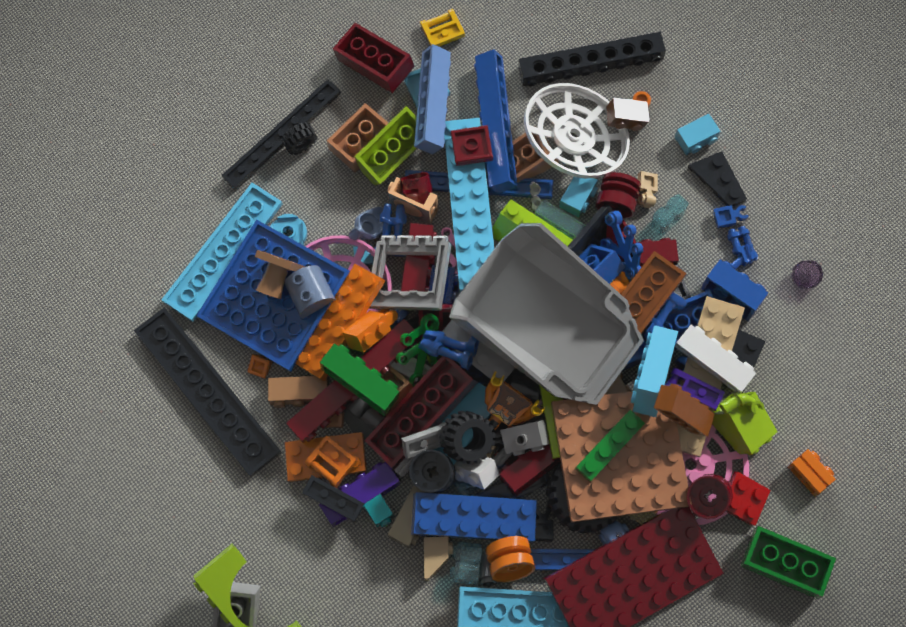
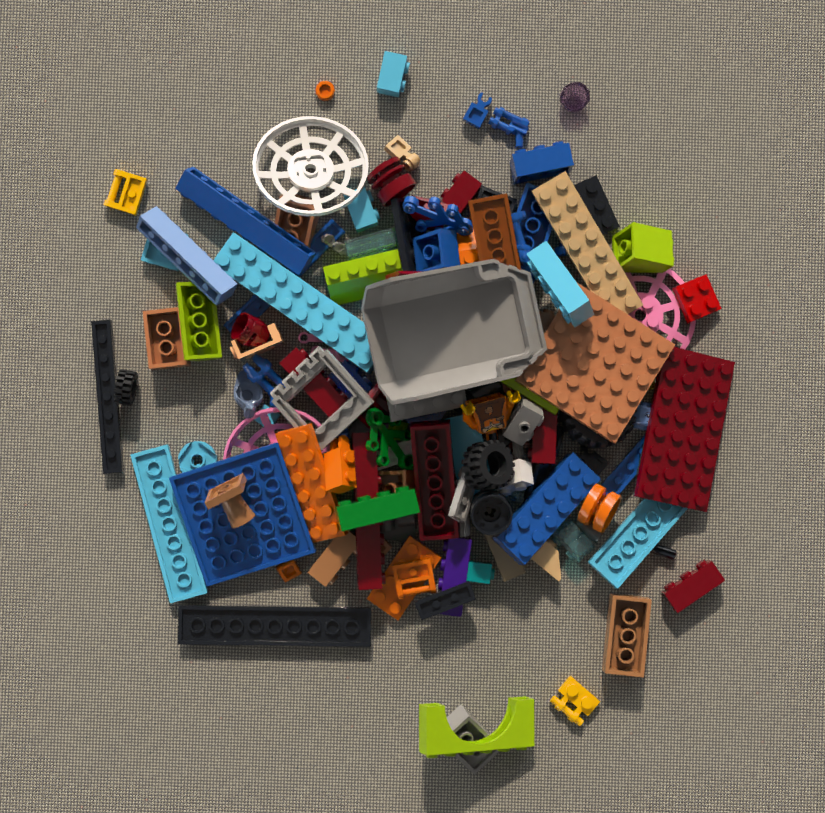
camera: 55 degrees left, 15 degrees up
(309, 290) = (267, 486): sand blue brick -> none
(373, 57) = (106, 270): dark red brick -> none
(436, 341) = (398, 422): blue piece -> none
(471, 145) = (254, 259): dark red tile -> none
(610, 445) = (585, 366): green plate -> none
(627, 114) = (330, 113): brick -> none
(652, 42) = (285, 38): black brick -> none
(669, 214) = (438, 160): clear light blue brick -> none
(684, 409) = (609, 290): dark orange brick -> none
(701, 504) = (687, 332): dark red wheel -> none
(704, 392) = (596, 264): dark purple plate -> none
(715, 359) = (587, 230): white brick -> none
(720, 178) = (441, 89): black wing -> none
(740, 400) = (632, 240): lime piece -> none
(788, 562) = (768, 310): green brick -> none
(812, 472) = (719, 232): orange brick -> none

